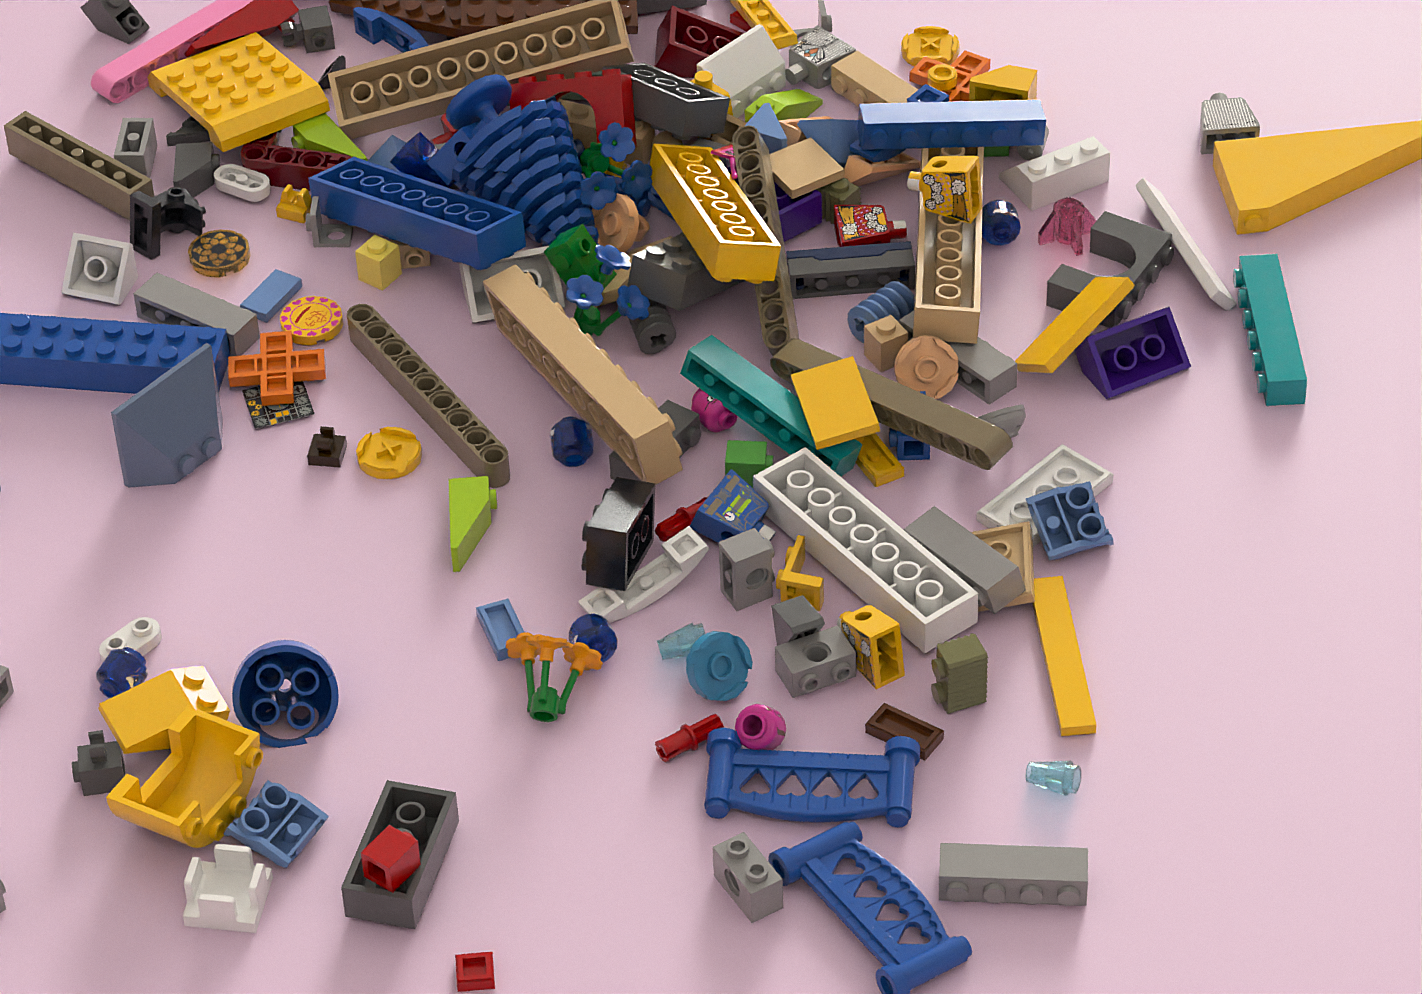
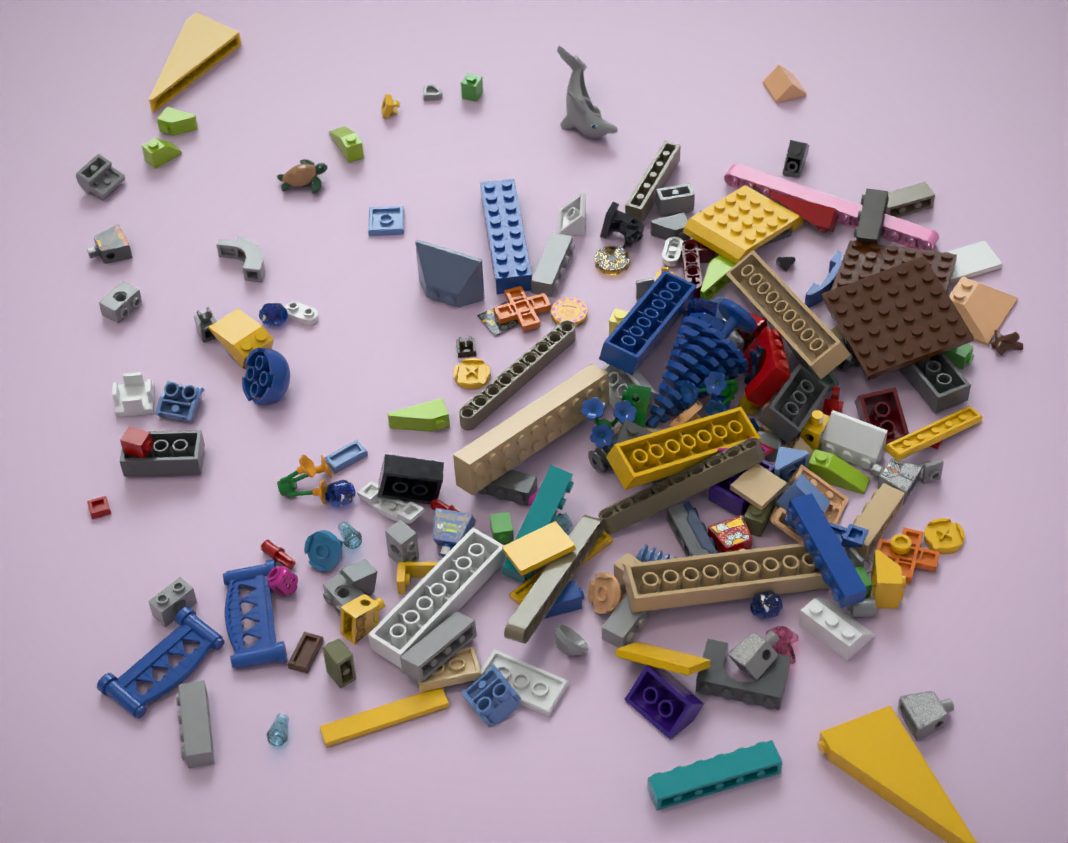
camera: 75 degrees right, 5 degrees up
(197, 785) = (184, 360): yellow cylinder -> none
(272, 294) = (584, 290): medium blue tile -> none
(314, 30) = (820, 241): dark grey brick -> none
(950, 186) = (746, 548): yellow torso -> none
(1094, 239) = (755, 653): none -> light grey torso
(1185, 245) = (786, 711): white tile -> none

